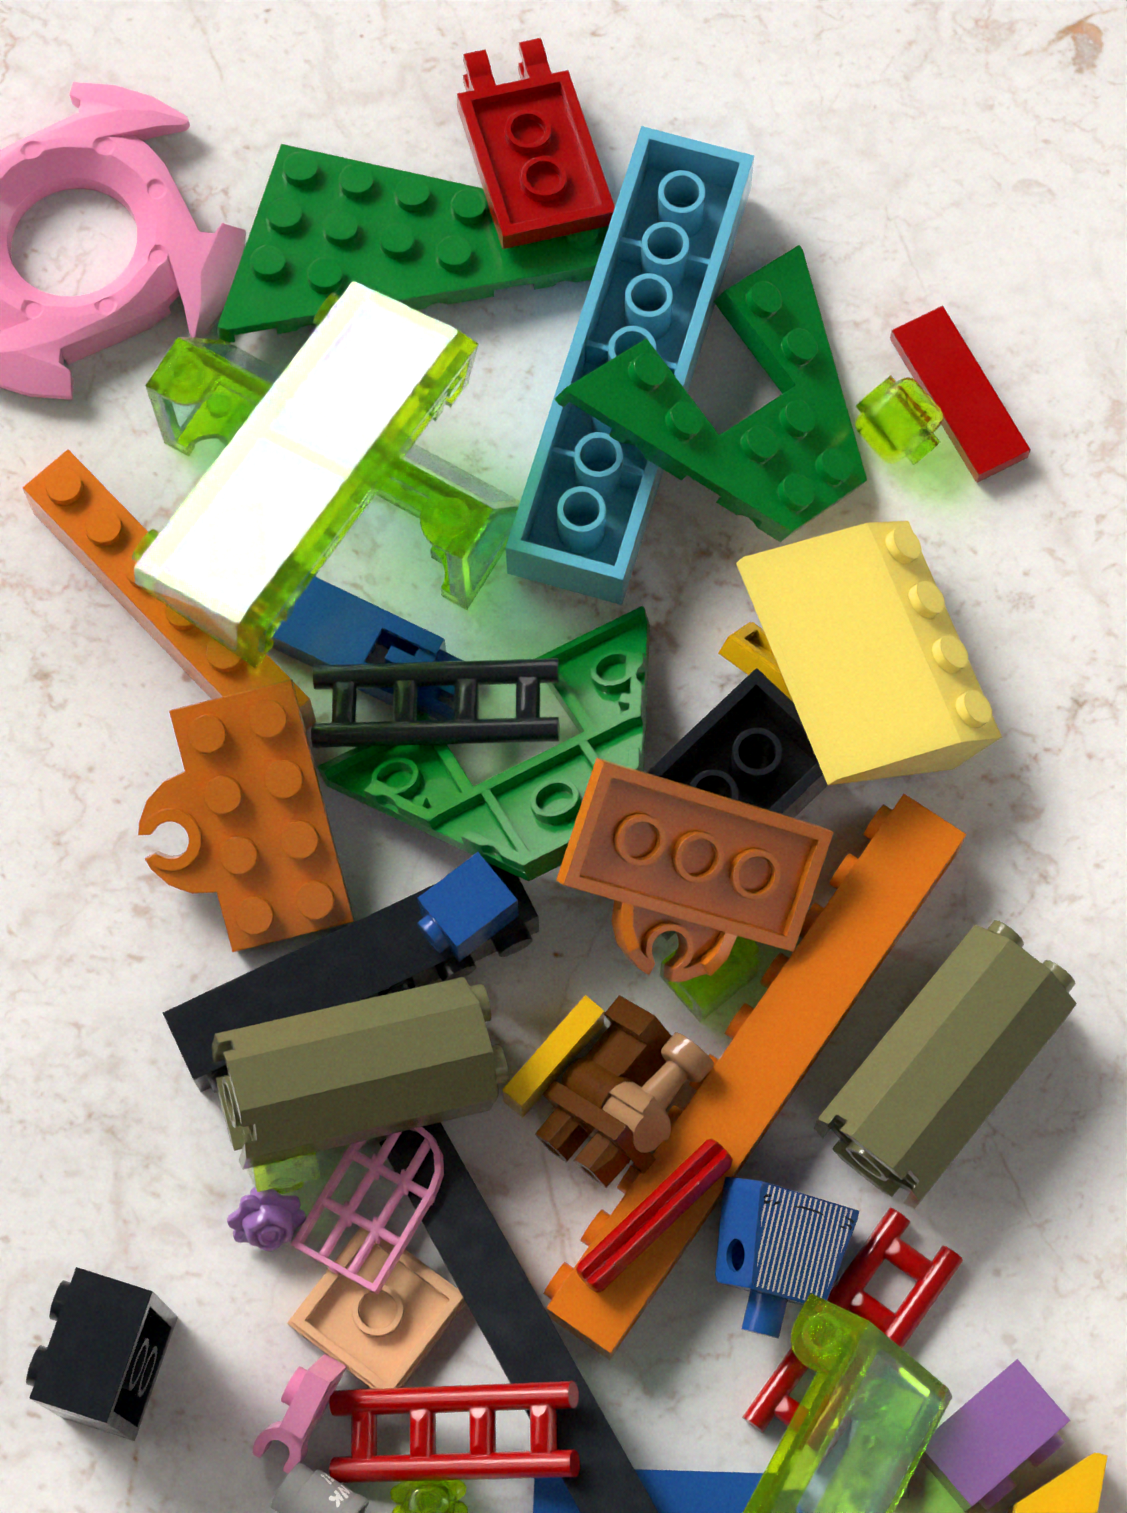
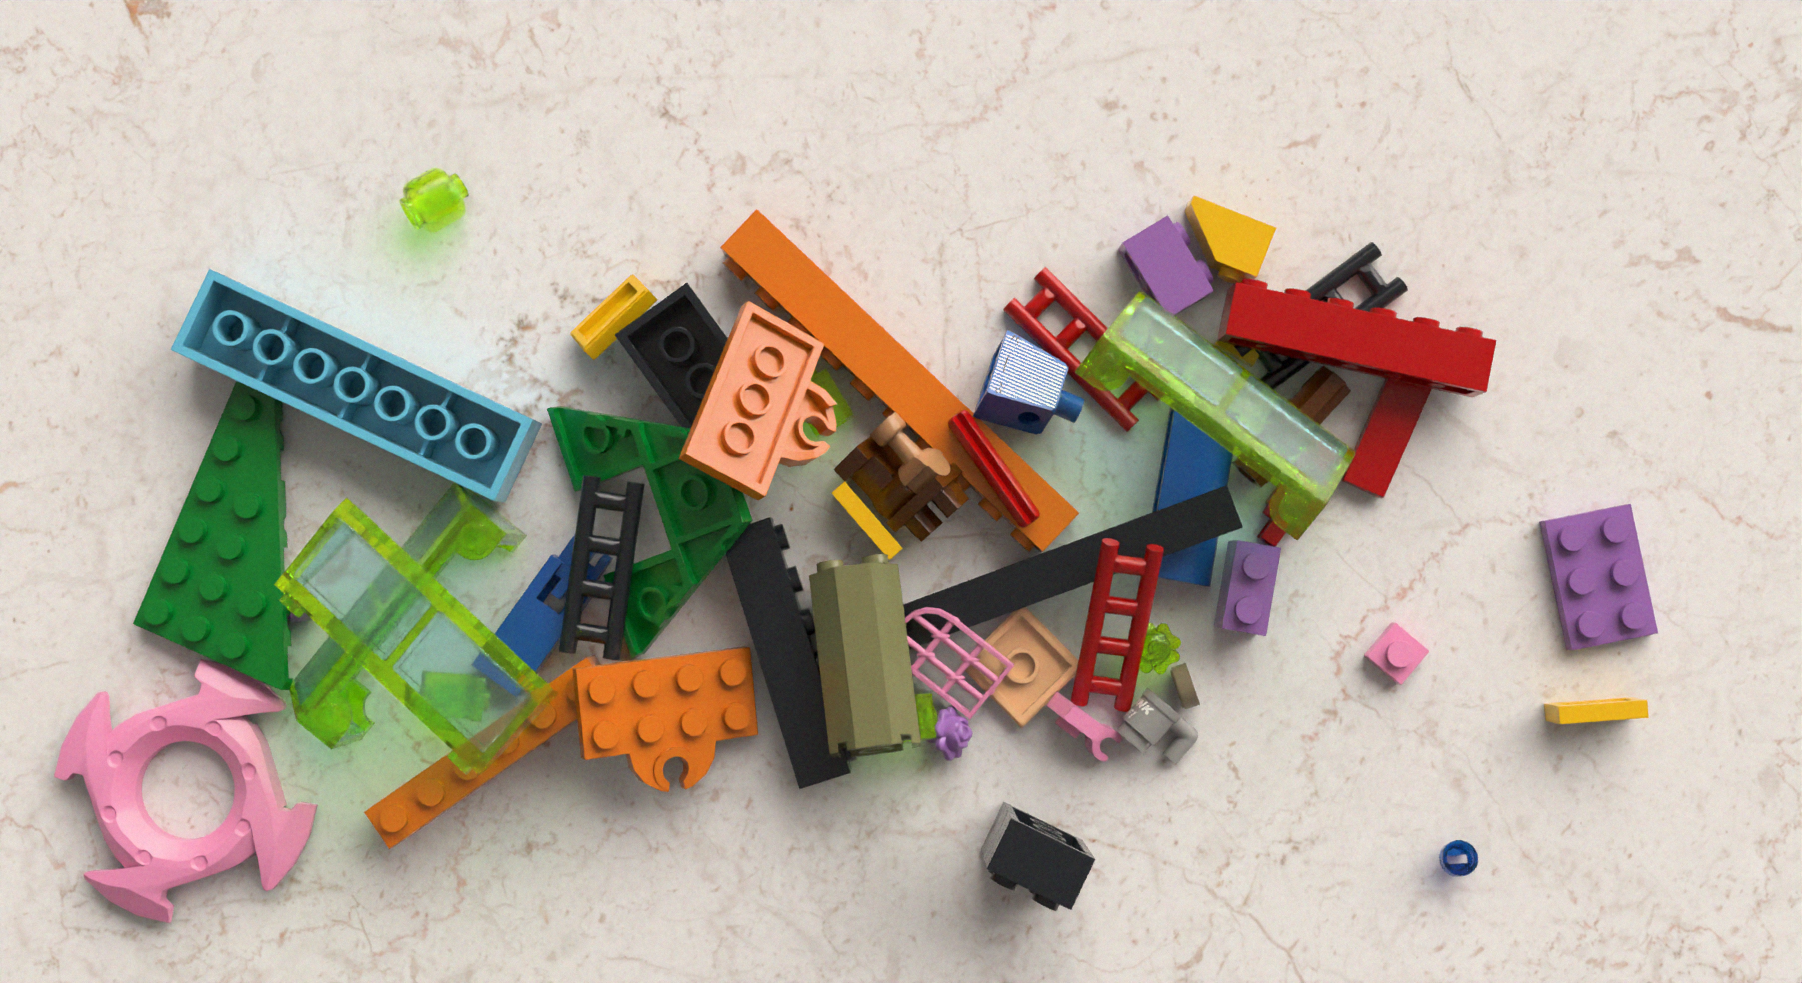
camera: 85 degrees left, 15 degrees up
(466, 908) = (761, 567): blue brick -> none
(532, 150) = (171, 434): red tile -> none
(777, 462) = (451, 286): green wing -> none
(869, 653) = (613, 253): light yellow slope -> none
(947, 1062) = (915, 250): olive brick -> none
(956, 383) = (416, 151): red tile -> none

